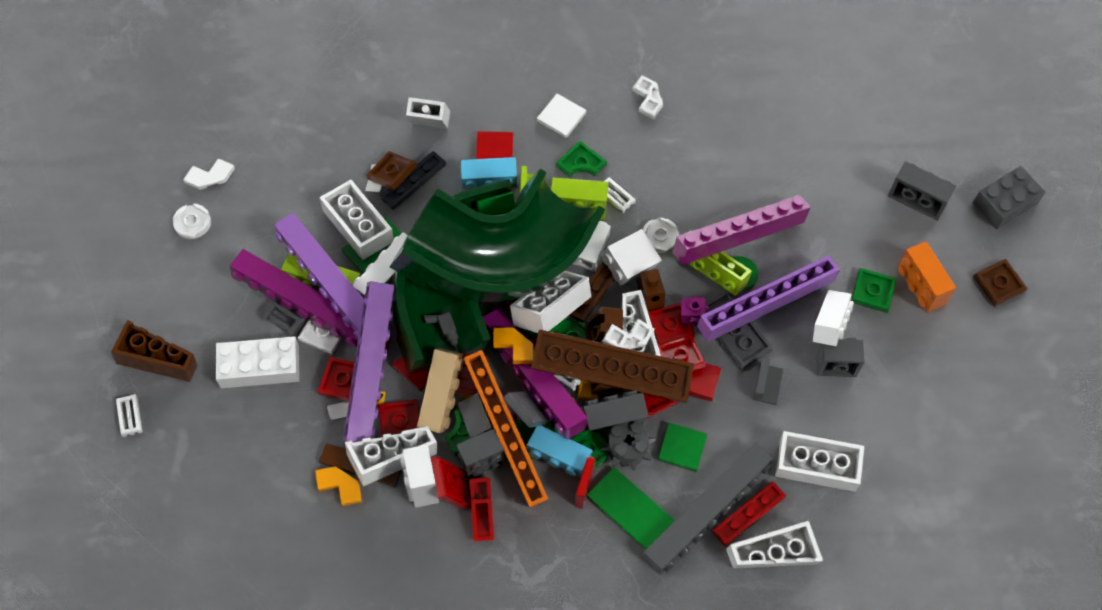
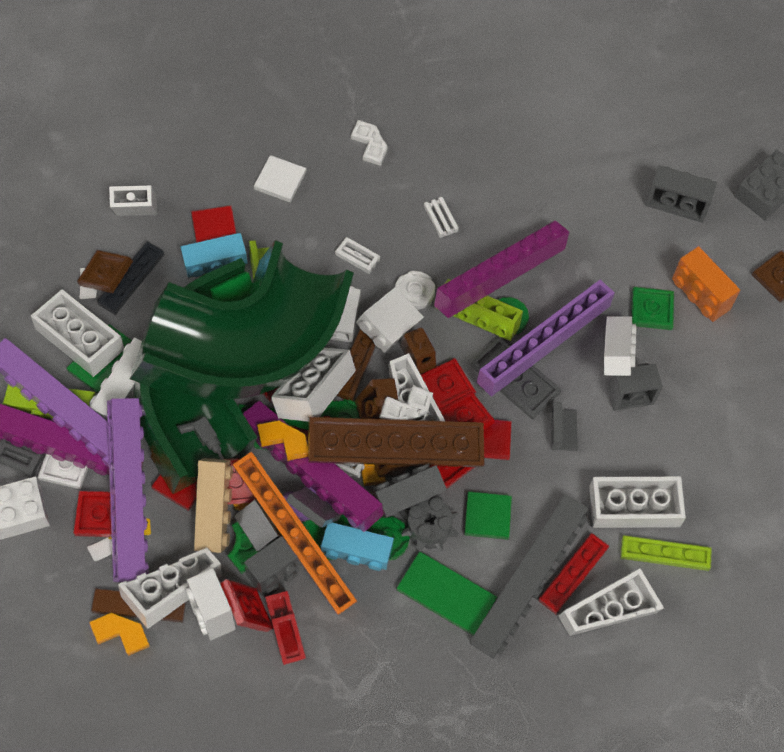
camera: 15 degrees left, 0 degrees up
(398, 416) = (170, 543): red tile -> none
(581, 159) = (312, 223): green tile -> none
(581, 192) = (322, 259): lime brick -> none
(585, 482) = (392, 575): red tile -> none
(692, 309) = (469, 364): magenta brick -> none
(695, 162) = (435, 204): none -> white tile
(837, 512) = (666, 553): none -> lime tile

